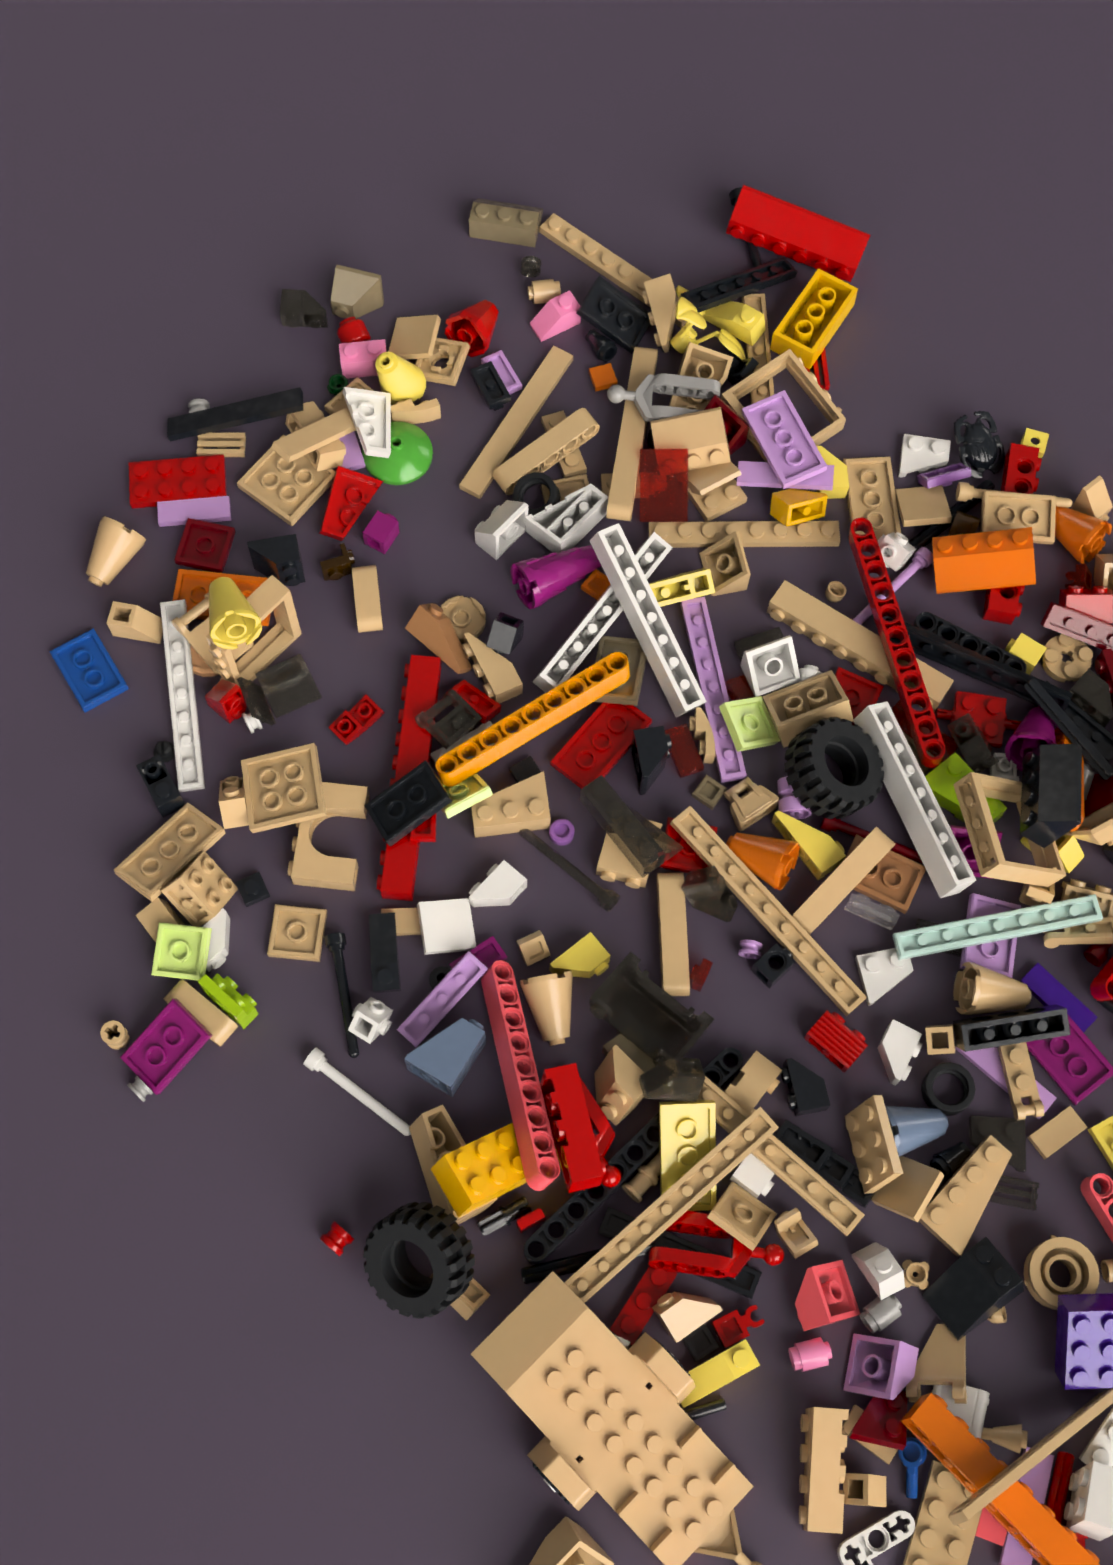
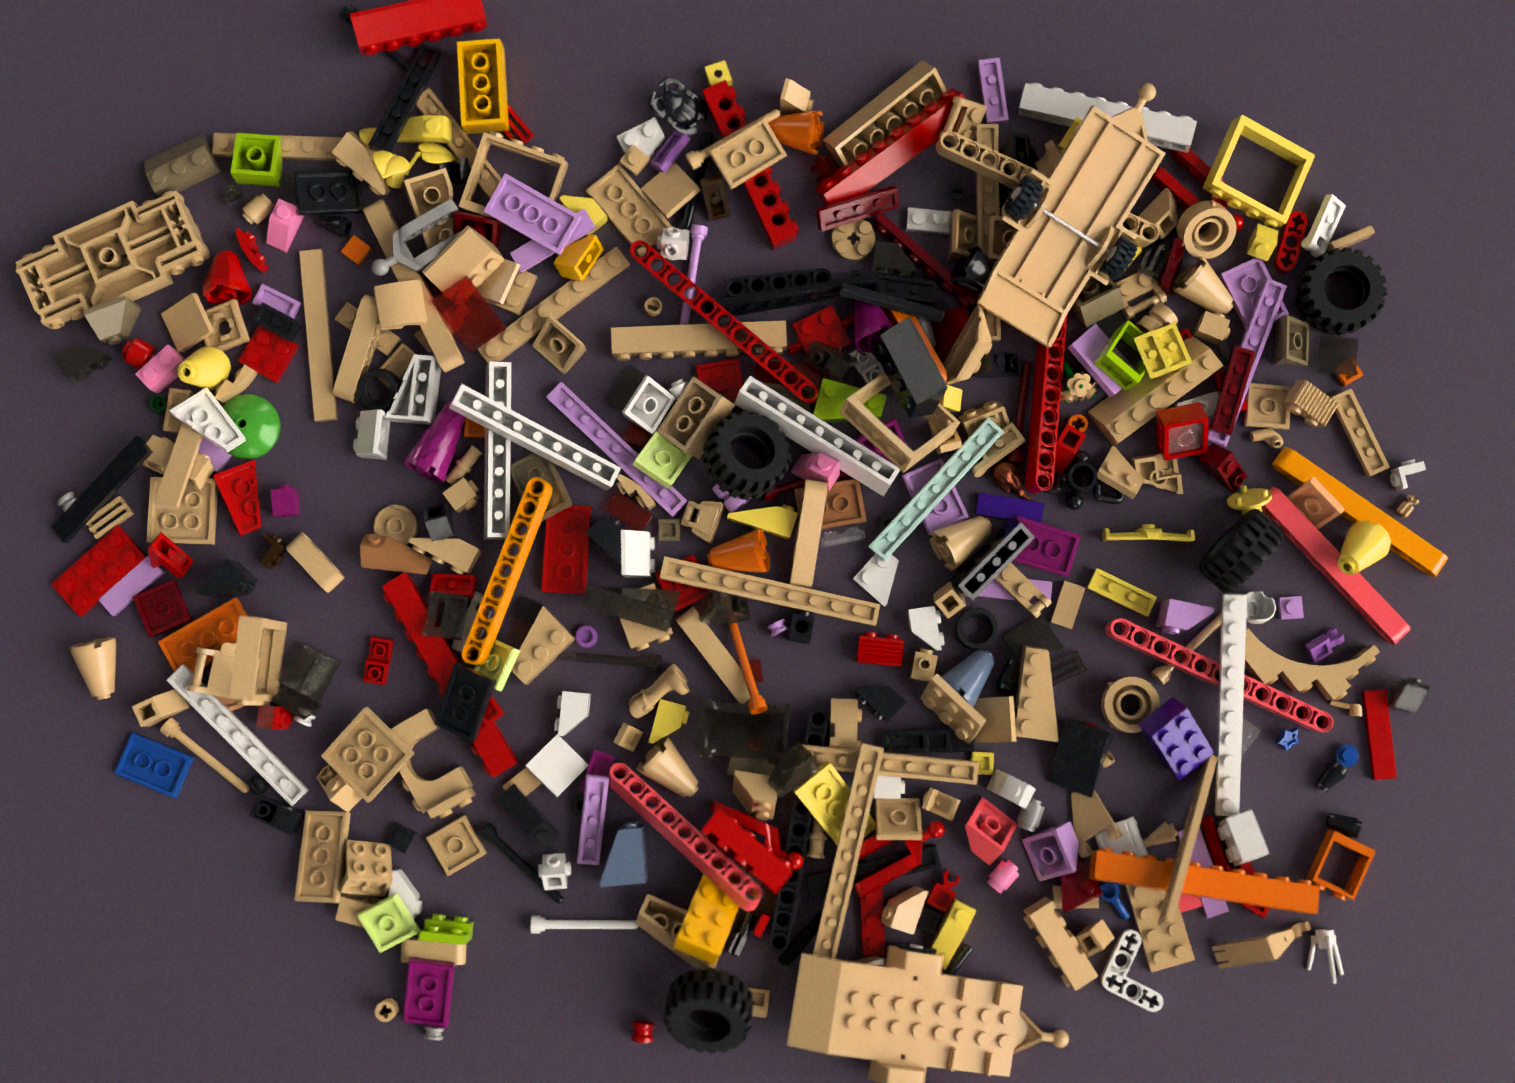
camera: 30 degrees left, 15 degrees up
(129, 649) = (172, 729): none -> tan piece
(231, 615) = (235, 672): light yellow cone -> none
(247, 502) = (166, 553): none -> red slope
(318, 887) = (444, 808): none -> tan plate
(405, 245) = (112, 256): none -> tan piece
(463, 408) = (268, 354): none -> red plate
(514, 317) = (250, 248): none -> red slope
(542, 630) = (462, 495): none -> tan brick
(562, 608) = (463, 465): none -> tan pin
(574, 253) = (257, 160): none -> lime slope
(574, 925) = (669, 680): none -> tan piece
(610, 434) = (400, 304): none -> tan slope
(664, 788) = (636, 554): none -> white slope
(681, 997) = (756, 702): none -> orange piece
(683, 586) = (538, 389): light yellow slope -> none
(867, 1227) = (985, 760): none -> light yellow tile
(871, 1082) = (923, 665): none -> tan brick
(897, 828) = (818, 468): none -> bright pink slope
(907, 461) = (634, 160): none -> tan plate
(922, 1271) = (1042, 772): tan plate -> none
(984, 560) = (746, 208): orange slope -> none
(1027, 650) = (821, 257): light yellow brick -> none
(1077, 966) = (1008, 477): none -> copper piece

